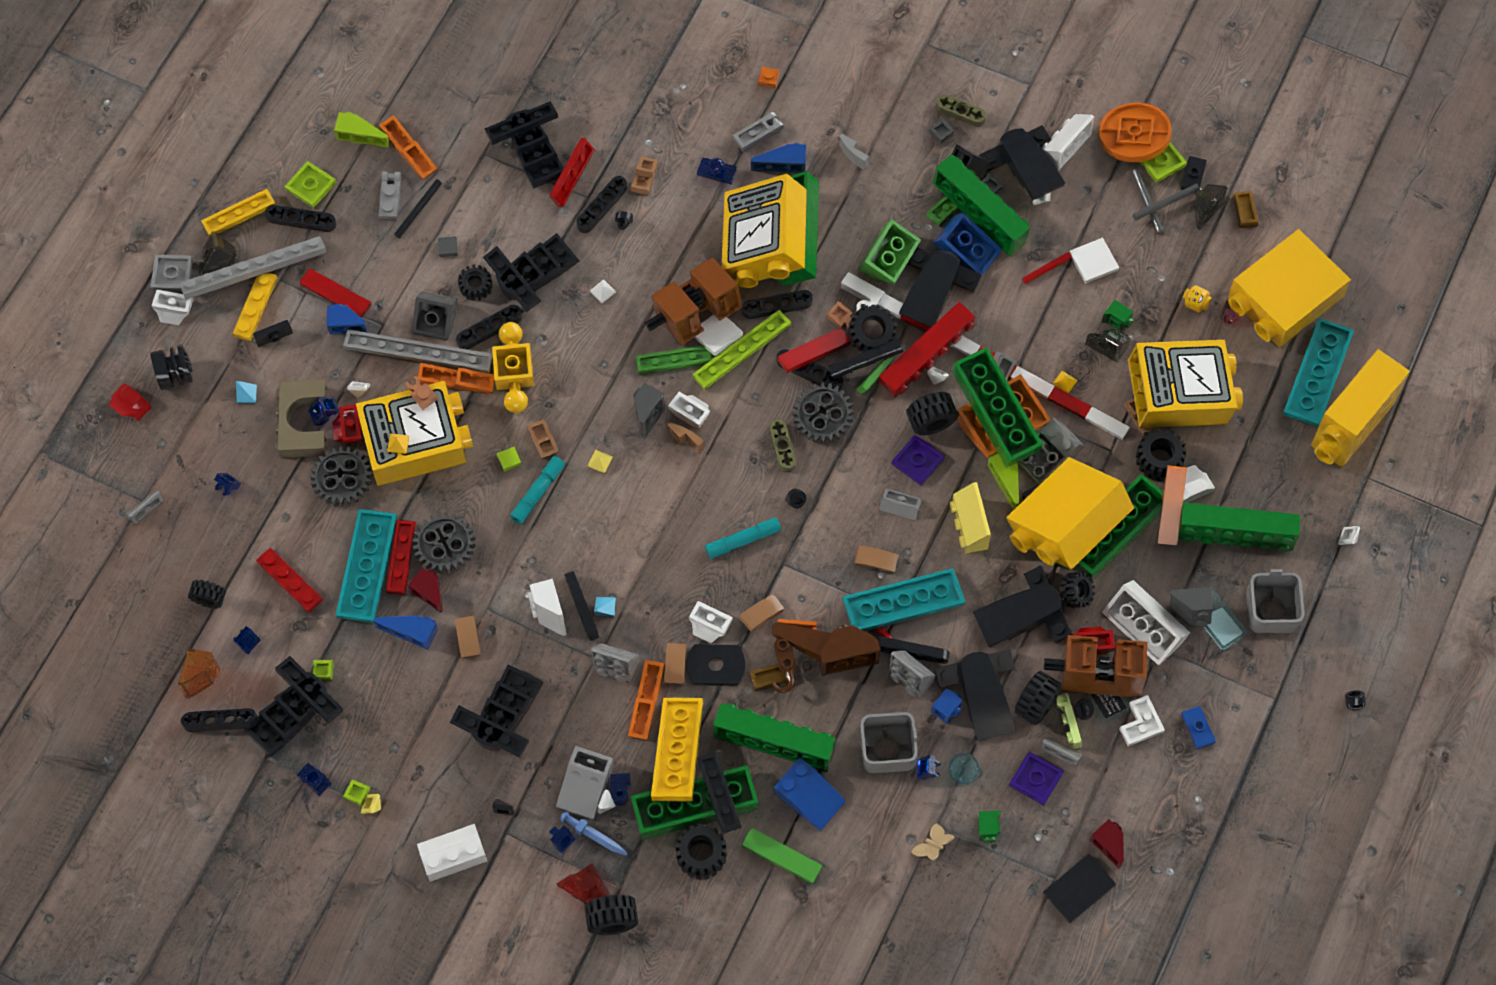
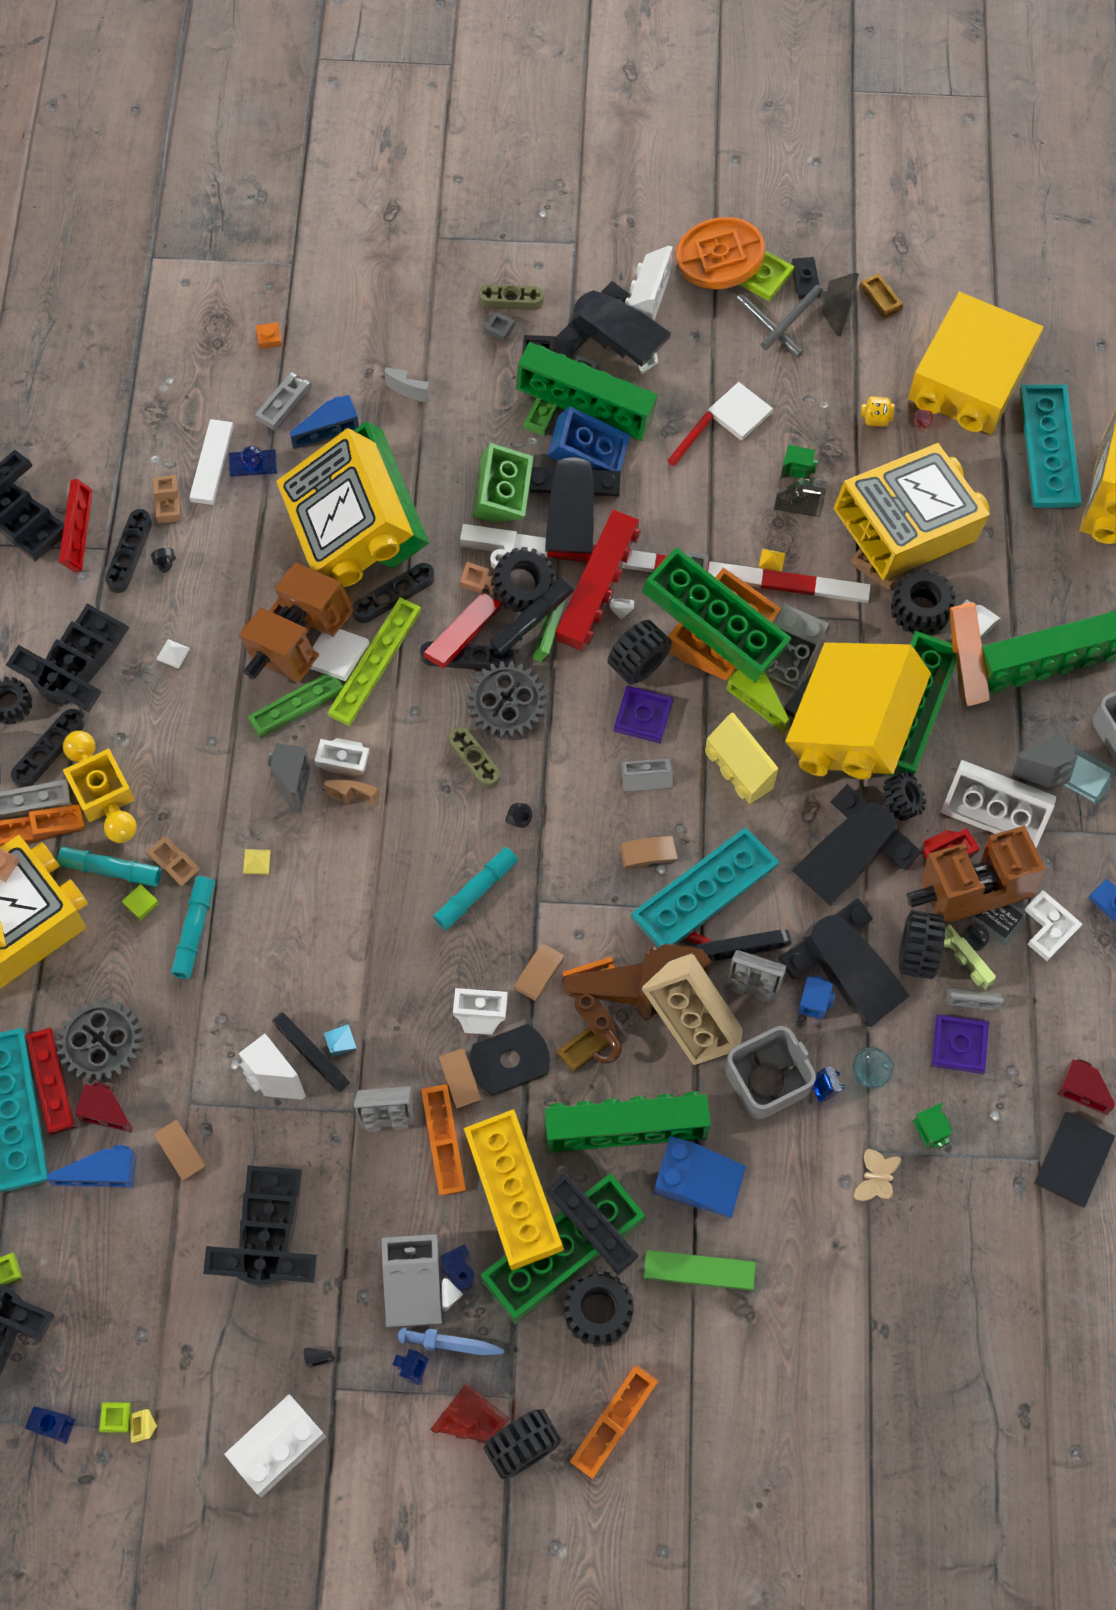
camera: 25 degrees left, 0 degrees up
(498, 426) = (109, 866): none -> teal piece
(681, 928) = (614, 1421): none -> orange slope
(687, 159) = (211, 462): none -> white tile
(853, 678) = (693, 1010): none -> tan slope

